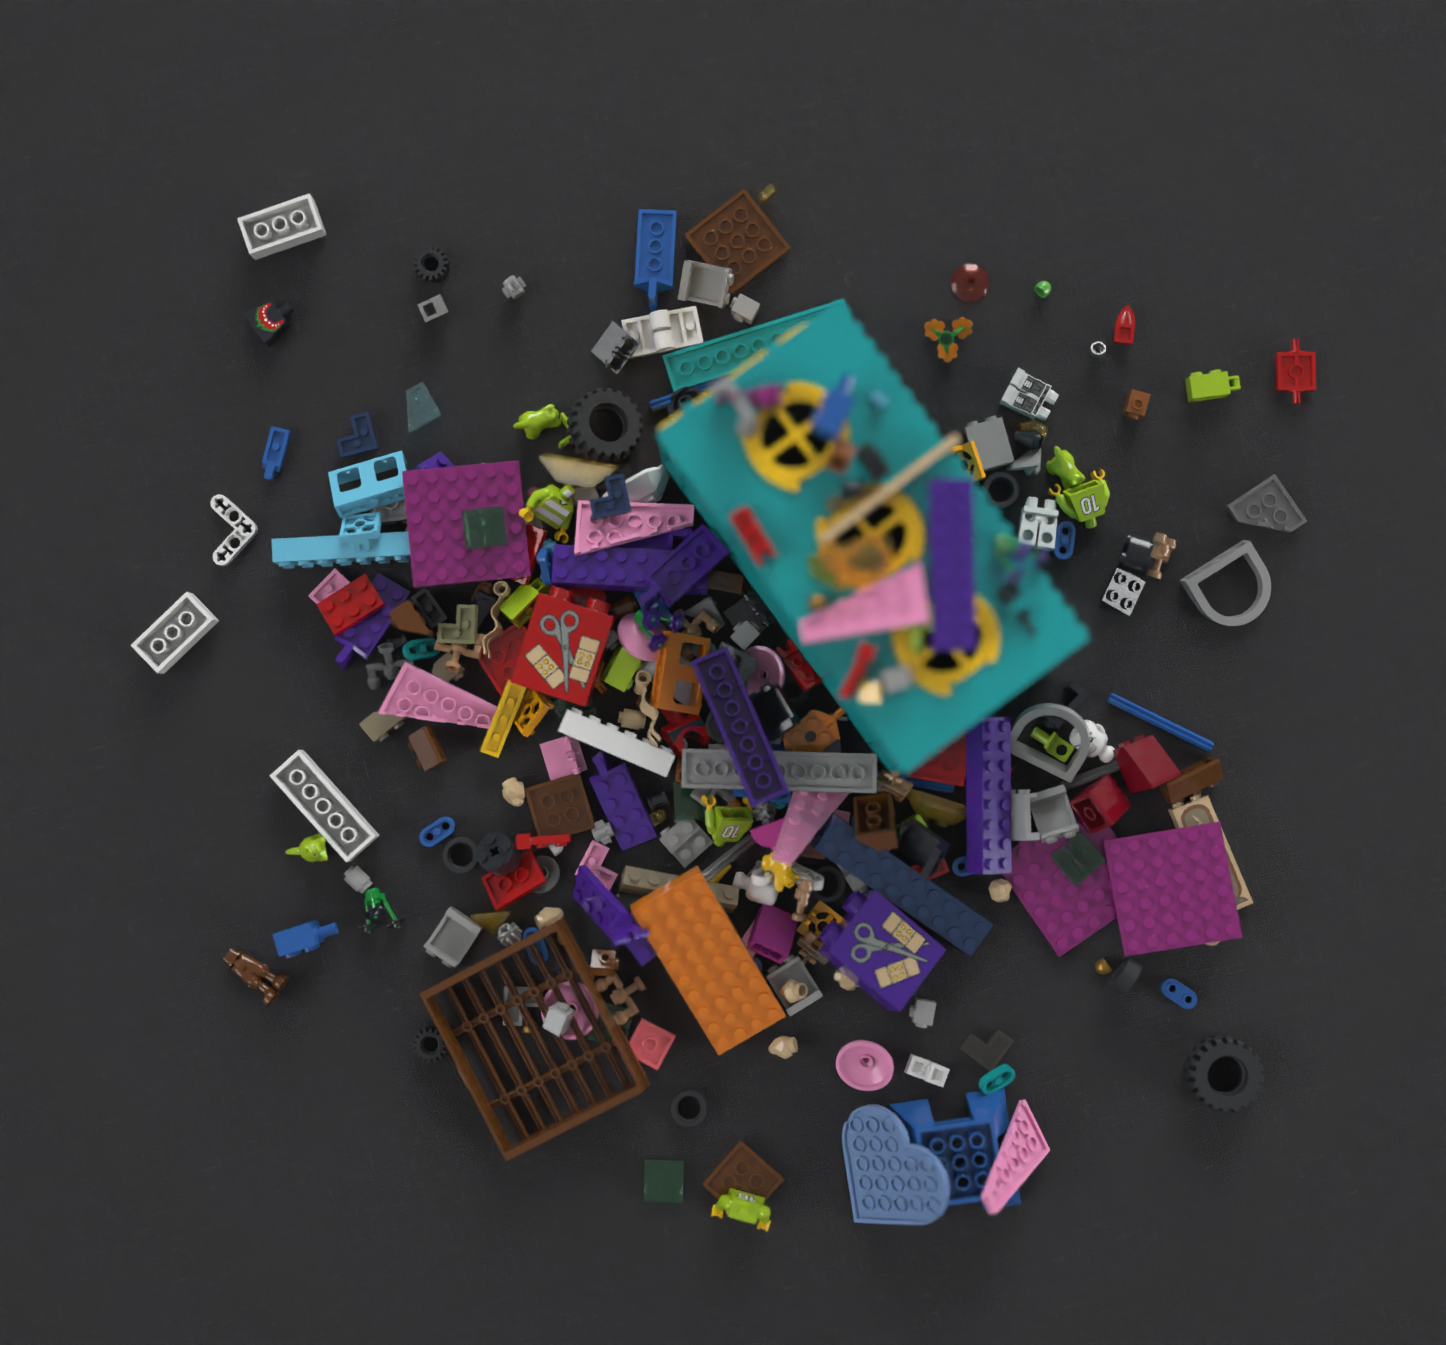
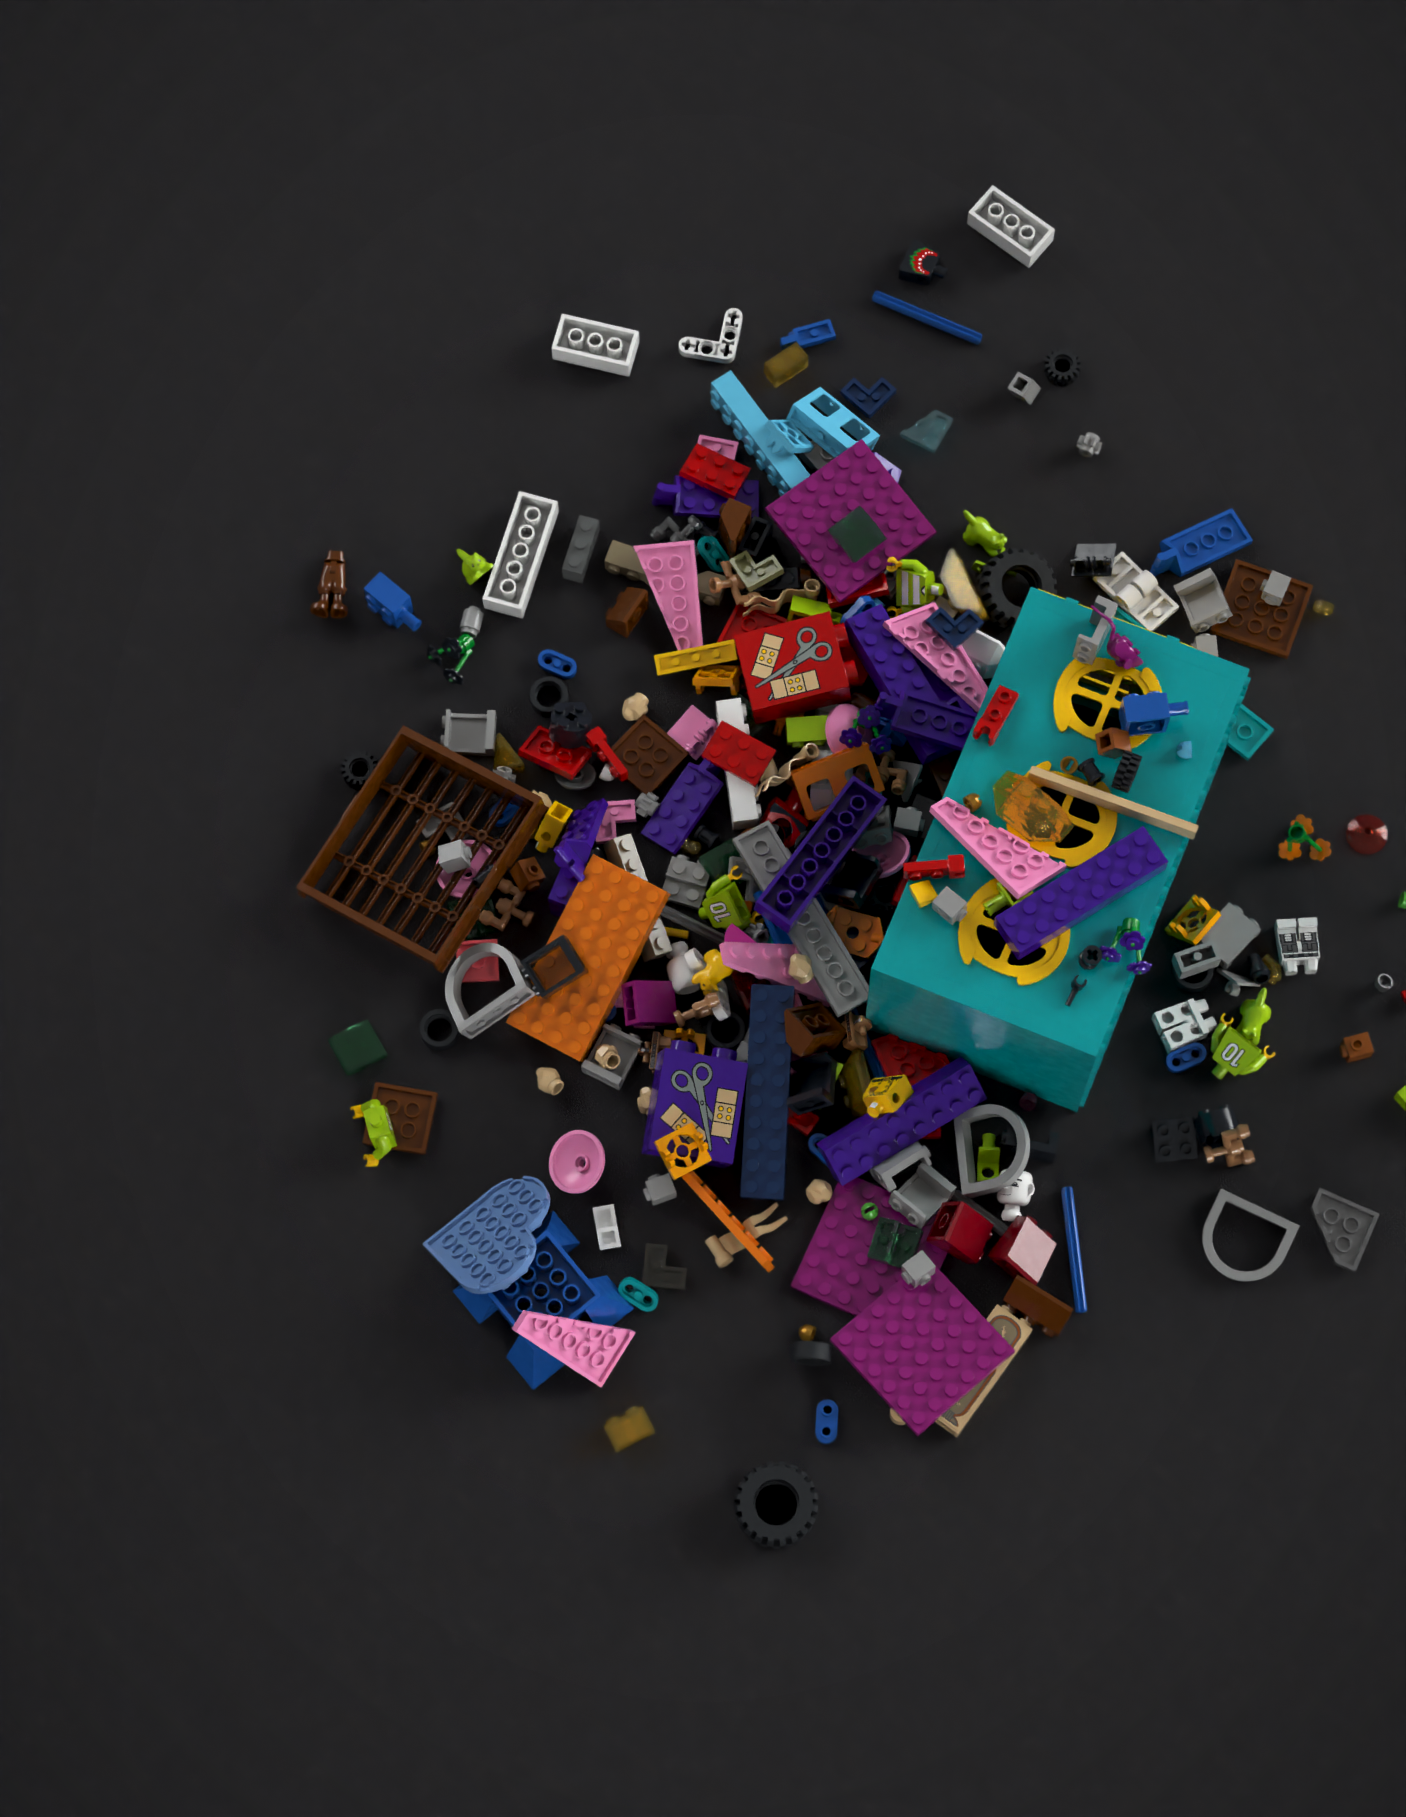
camera: 60 degrees right, 15 degrees down
(290, 487) = (786, 364): none -> clear yellow brick
(318, 345) = (927, 317): none -> blue axle
(349, 753) = (581, 549): none -> dark grey brick
(580, 926) = (552, 826): none -> yellow torso
(590, 1007) = (479, 879): none -> black pin
(614, 740) = (738, 753): none -> red plate
(700, 1027) = (498, 1008): none -> light grey window
(704, 978) = (572, 956): none -> black window
(730, 221) = (1274, 588): none -> light grey brick
(823, 799) = (801, 968): none -> tan rock
(903, 971) = (668, 1158): none -> light orange piece
(966, 797) = (886, 1094): none -> yellow torso
(986, 978) = (731, 1223): none -> orange plate
(997, 971) = (728, 1244): none -> tan flag
(1000, 484) = (1196, 959): none -> light grey brick
(1036, 861) = (870, 1215): none -> bright green hinge
(1096, 1149) = (628, 1428): none -> clear yellow brick
(1115, 857) = (918, 1269): none -> light grey brick

